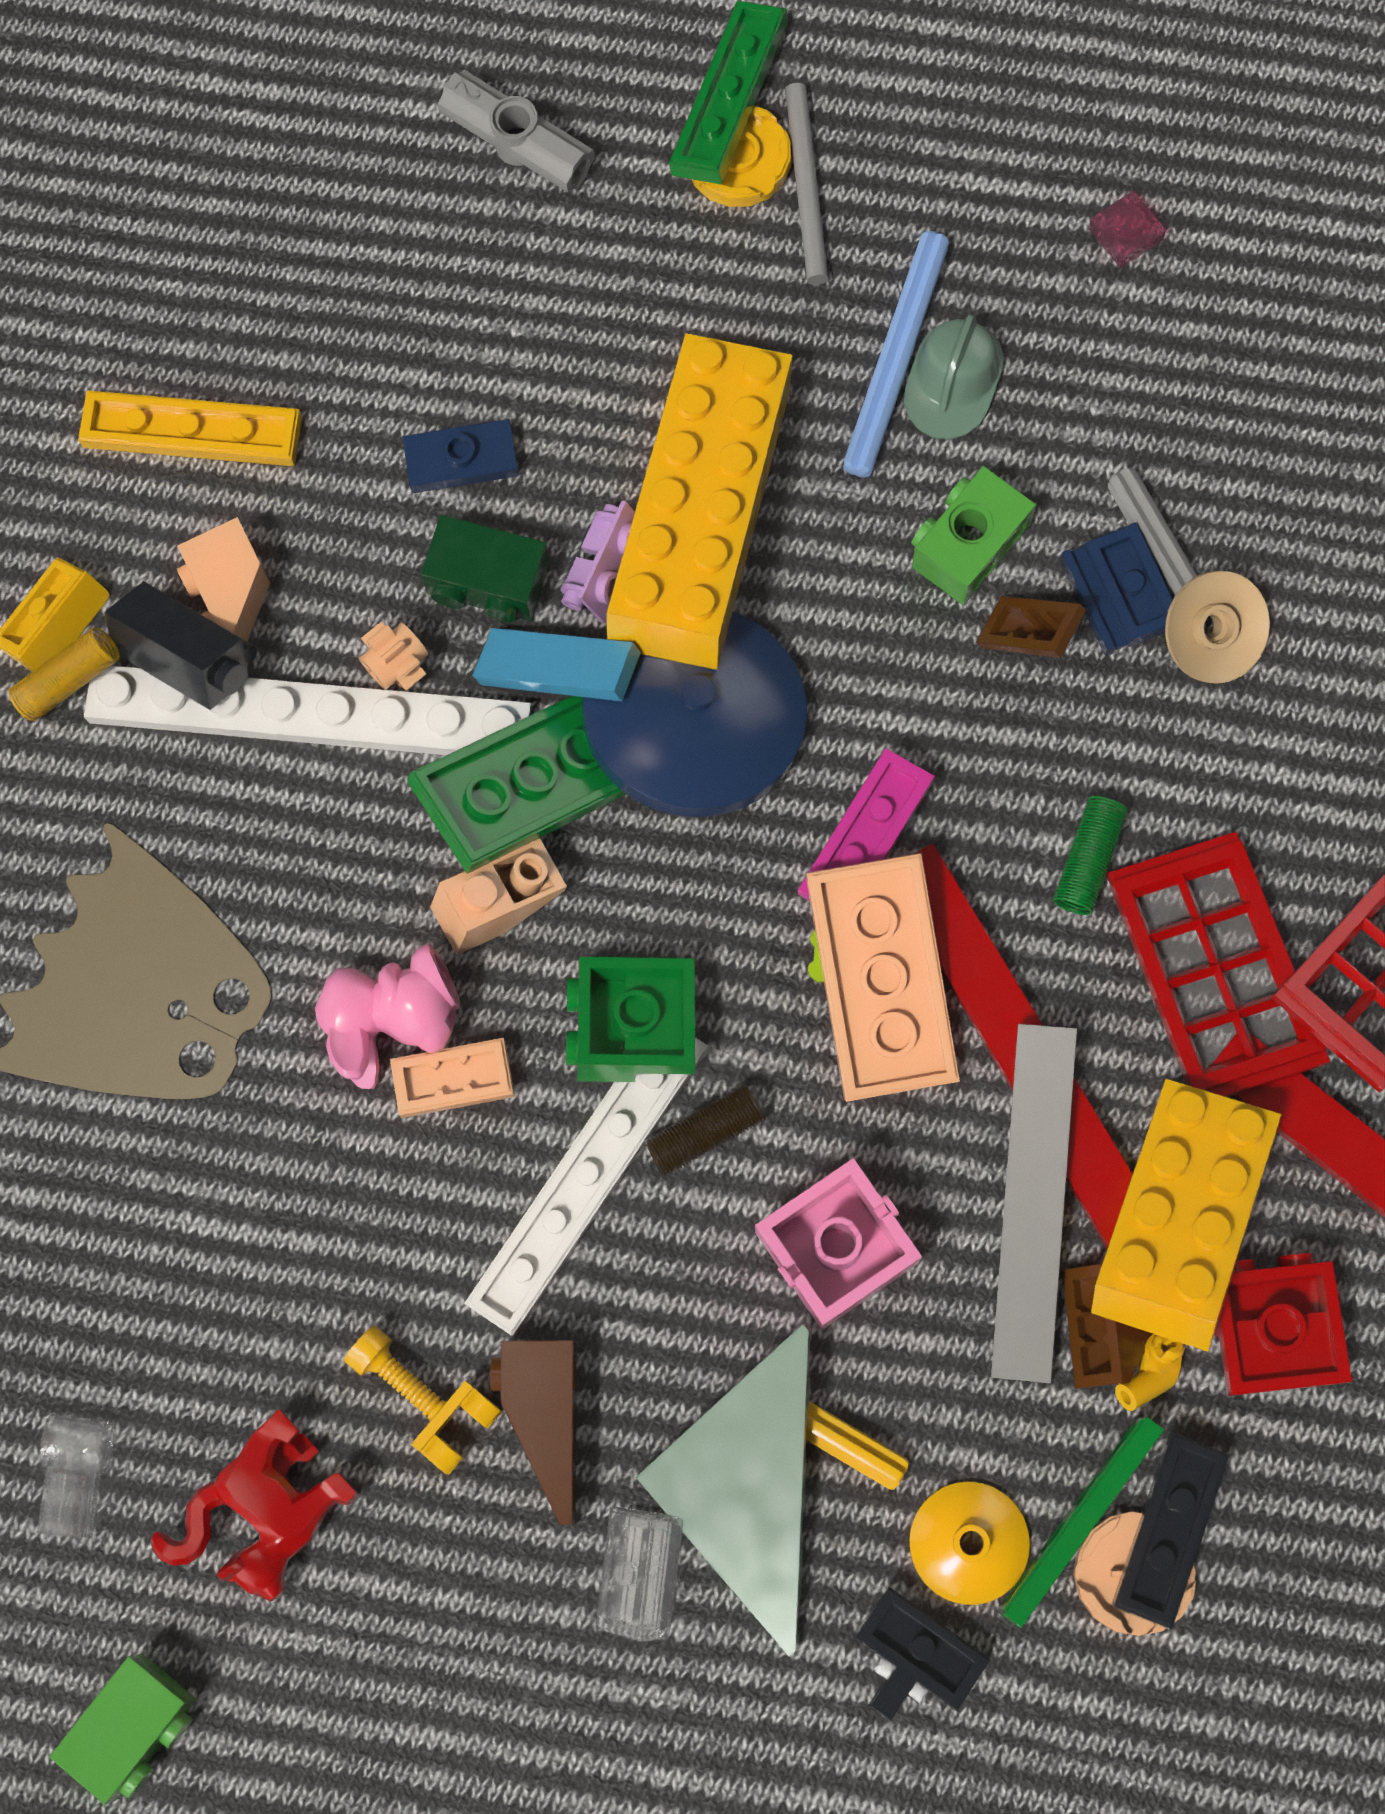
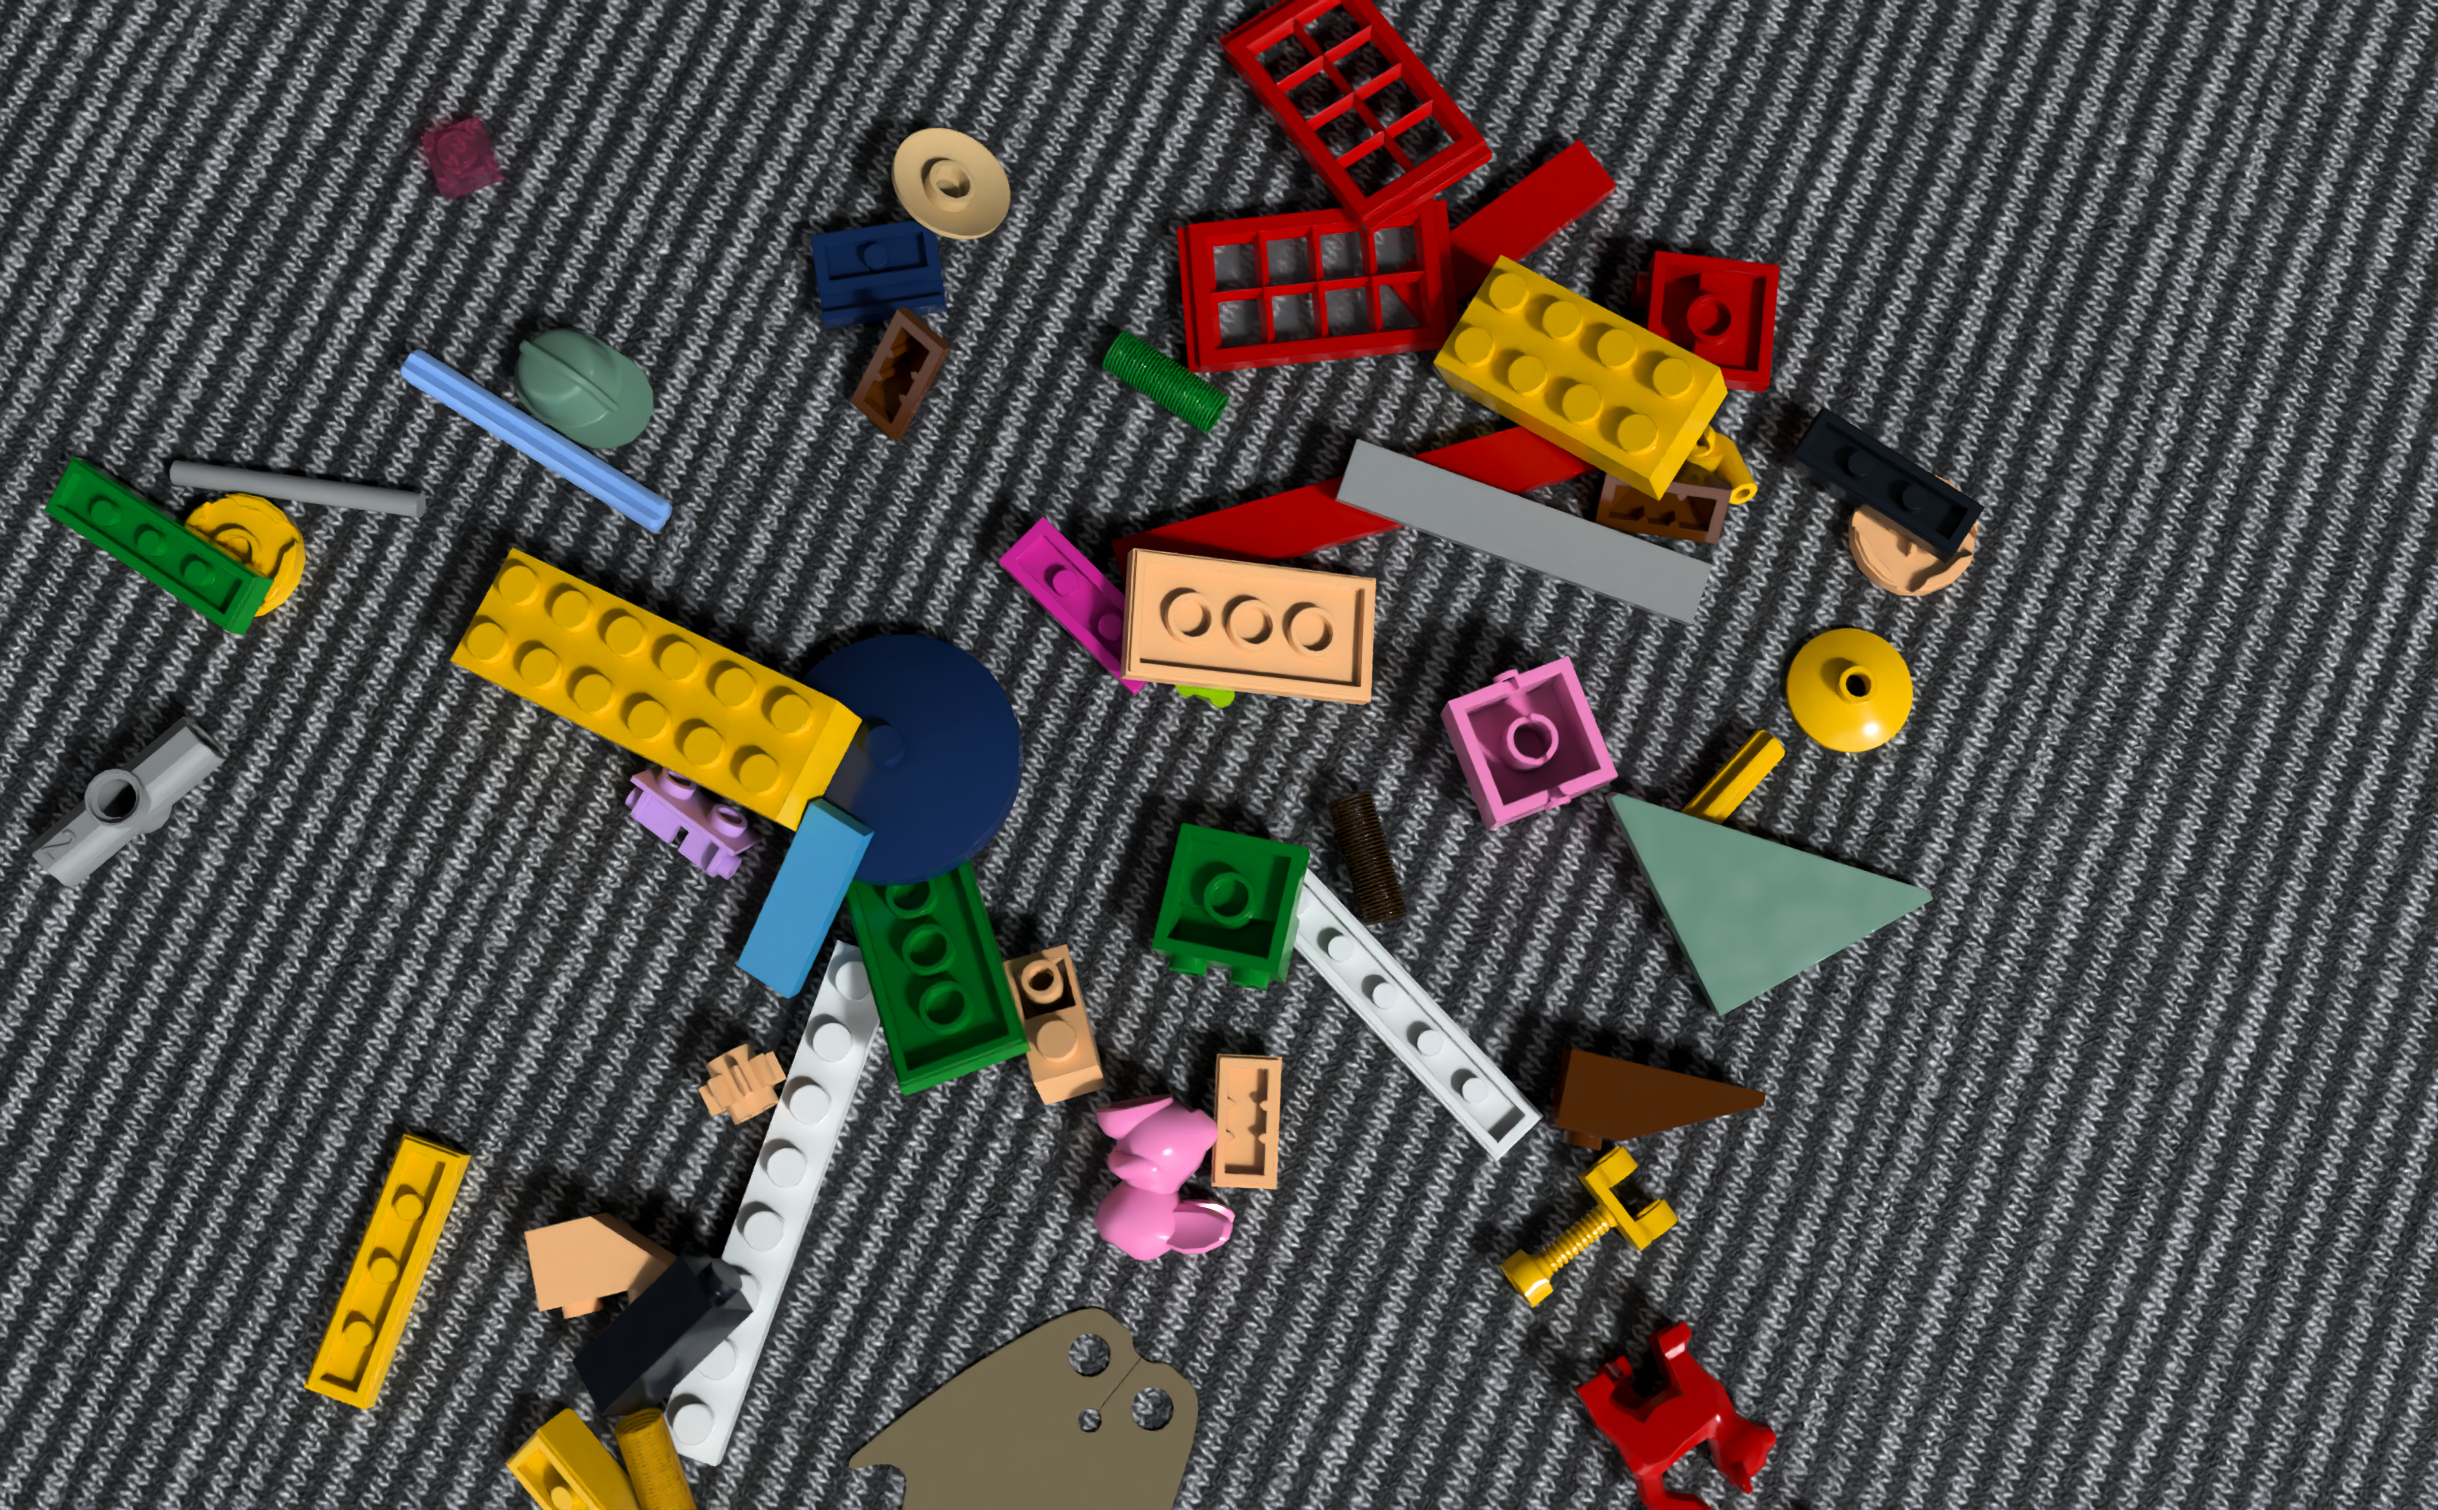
camera: 85 degrees left, 5 degrees up
(460, 456) = (516, 956): dark blue plate -> none
(485, 569) = (666, 957): dark green brick -> none
(639, 1574) = (1820, 1036): clear slope -> none
(917, 1656) = (1958, 770): black hinge -> none
(962, 564) = (763, 376): bright green brick -> none
(1079, 1521) = (1857, 571): green tile -> none
(1141, 509) = (793, 229): light grey axle -> none

